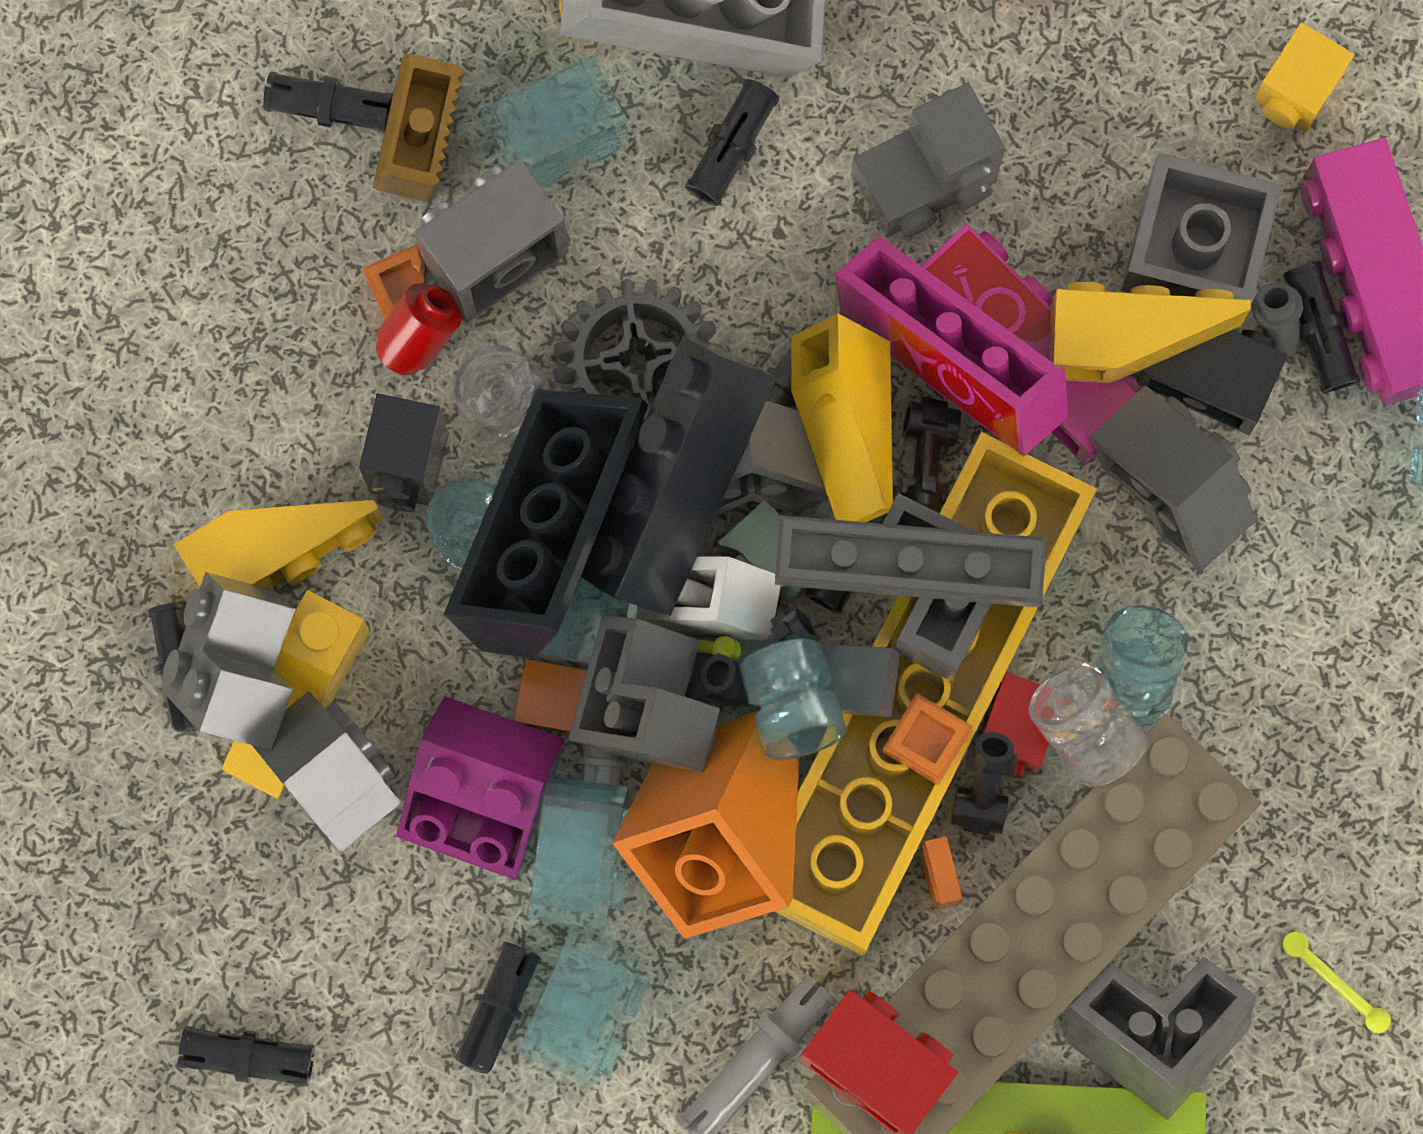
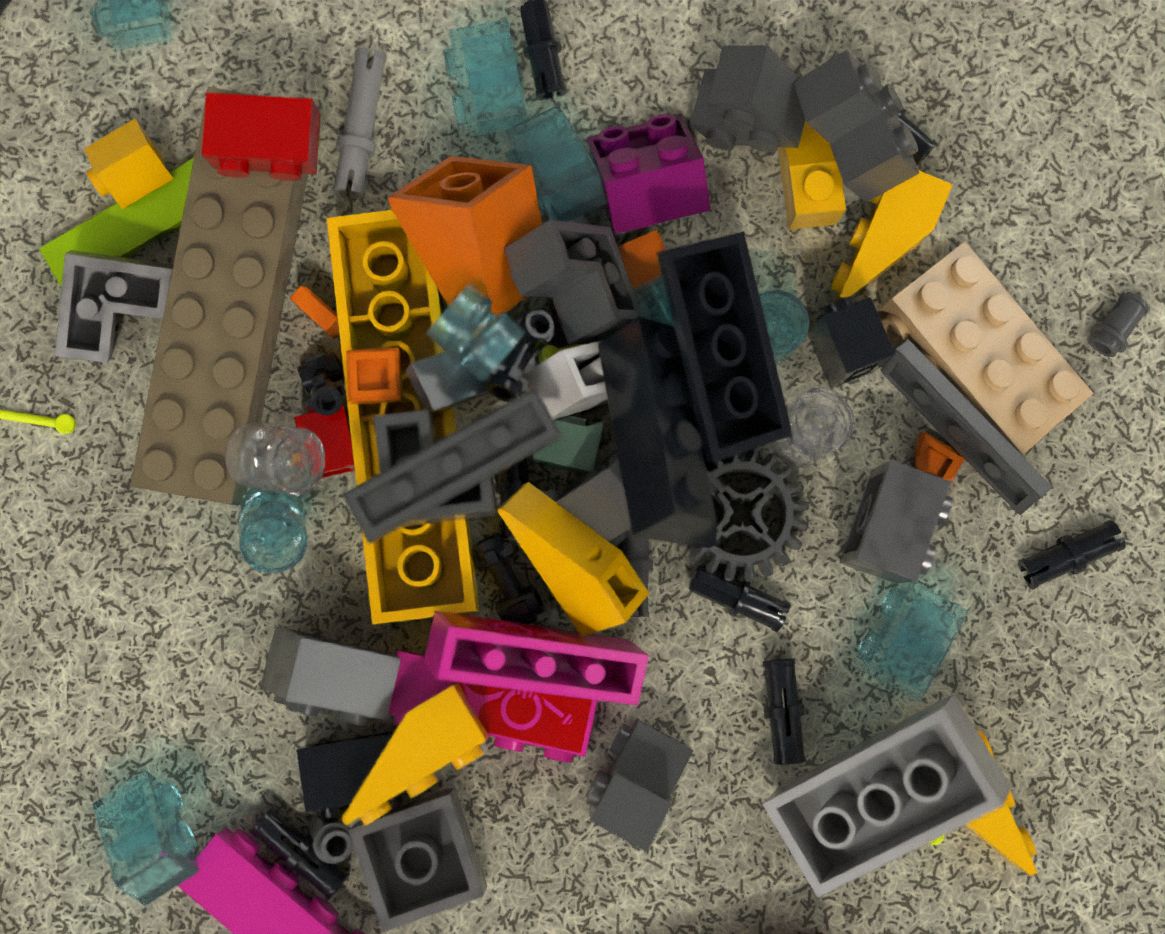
camera: 145 degrees right, 5 degrees up
(103, 294) = (1112, 334): none -> dark grey pin
(267, 358) = (986, 347): none -> tan bracket
(346, 290) = (965, 428): none -> dark grey tile
(417, 328) = (900, 433): red brick -> none
(418, 127) = (1001, 571): pearl gold brick -> none
(698, 281) = (739, 598): none -> black axle

